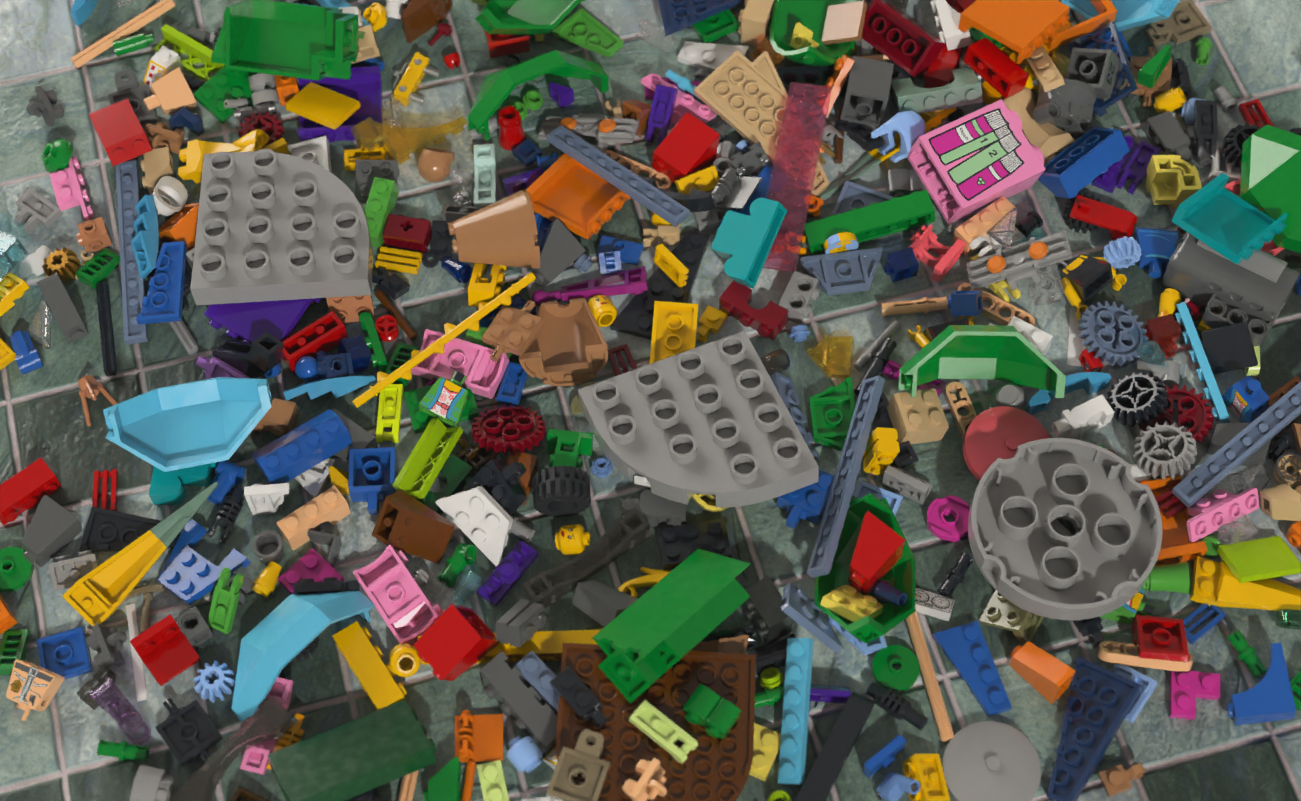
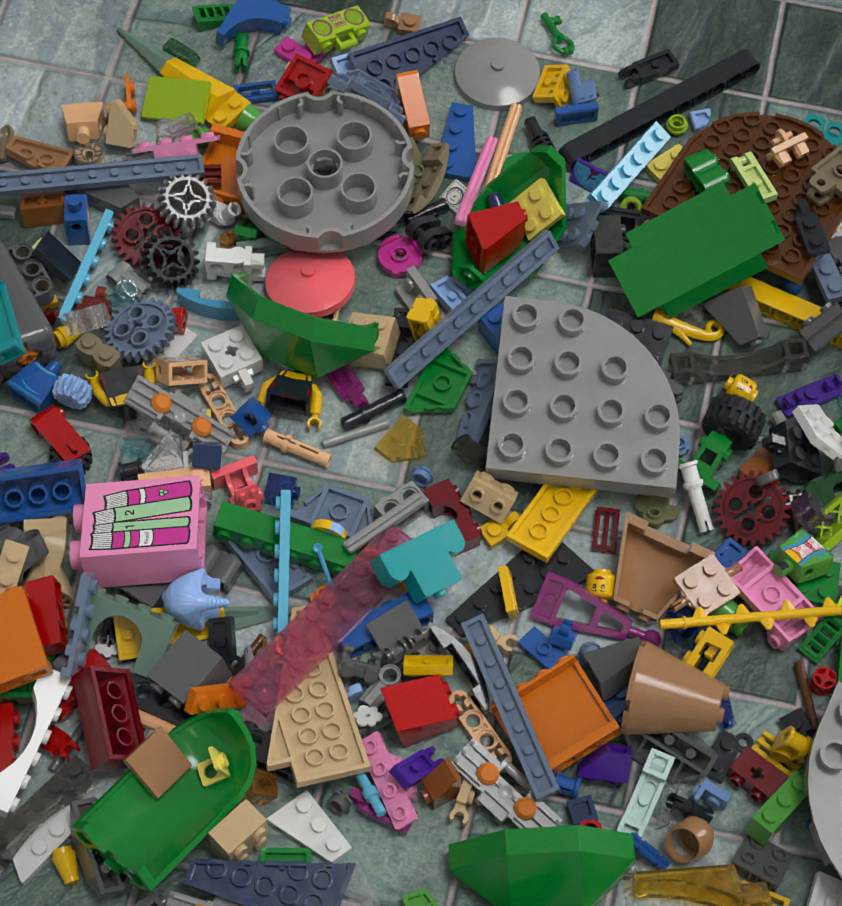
camera: 155 degrees left, 0 degrees up
(389, 253) = (790, 745): none -> yellow piece
(433, 205) = (712, 793): none -> medium blue bracket
(446, 182) = (688, 807): none -> black pin
(458, 438) = (808, 510): none -> brick
(464, 144) = (649, 853): none -> blue axle
(504, 435) = (767, 477): none -> dark grey tile
(568, 419) = (693, 484): none -> white pin
(721, 327) = (489, 496): none -> tan brick
(725, 129) = (367, 716): none -> white plant
(800, 263) = (383, 523): none -> light grey axle
(837, 217) = (318, 548): none -> dark azure hinge
(856, 193) = (282, 552): none -> medium azure plate
(924, 552) = (429, 233): none -> black brick
(926, 20) = (59, 743): none -> red plate
(929, 619) = (475, 181): none -> bright pink axle
(961, 60) = (79, 624): none -> sand blue wing
(971, 597) = (436, 162): none -> dark tan slope
(976, 246) = (206, 454): none -> dark blue panel
(1052, 305) = (174, 370): none -> light nougat torso
(1088, 652) = (373, 89): none -> sand blue wing
(1132, 295) = (97, 355): none -> dark tan brick
(1157, 298) = (86, 319): none -> clear brick
(1172, 727) = (337, 30): none -> lime piece

